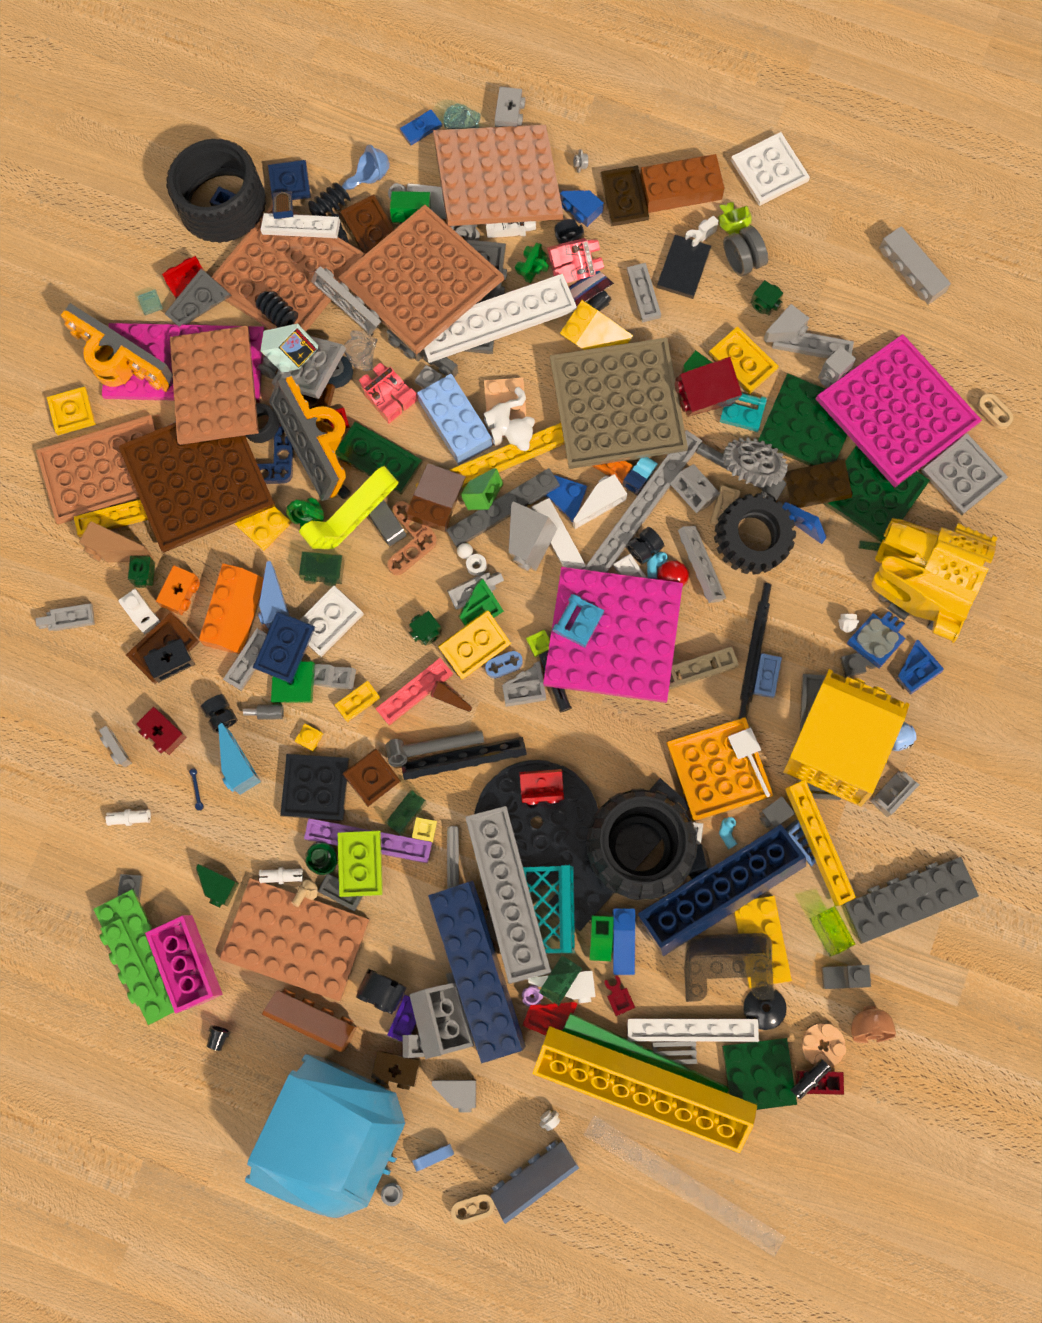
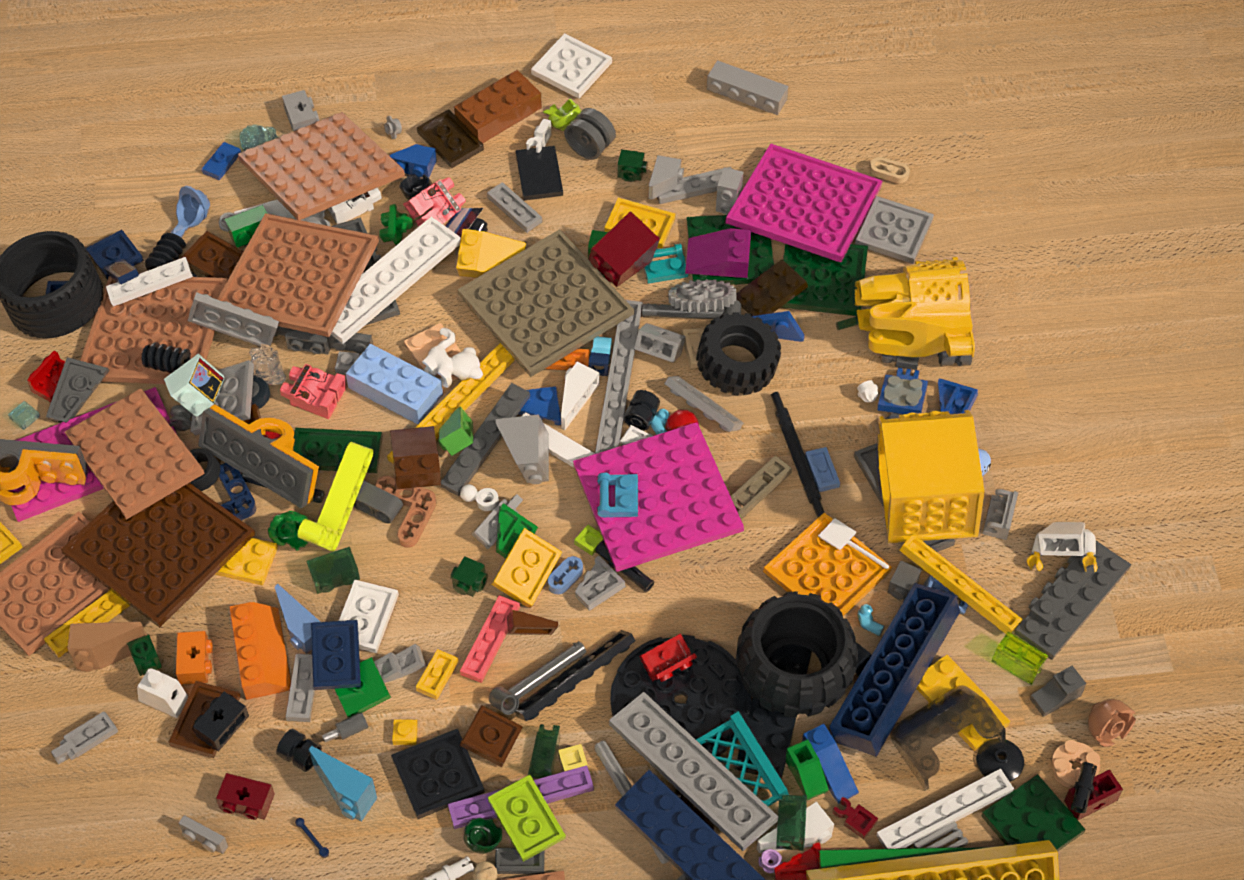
camera: 30 degrees left, 20 degrees down
(792, 427) = (719, 253): none -> magenta slope
(931, 848) = (1064, 540): none -> white torso

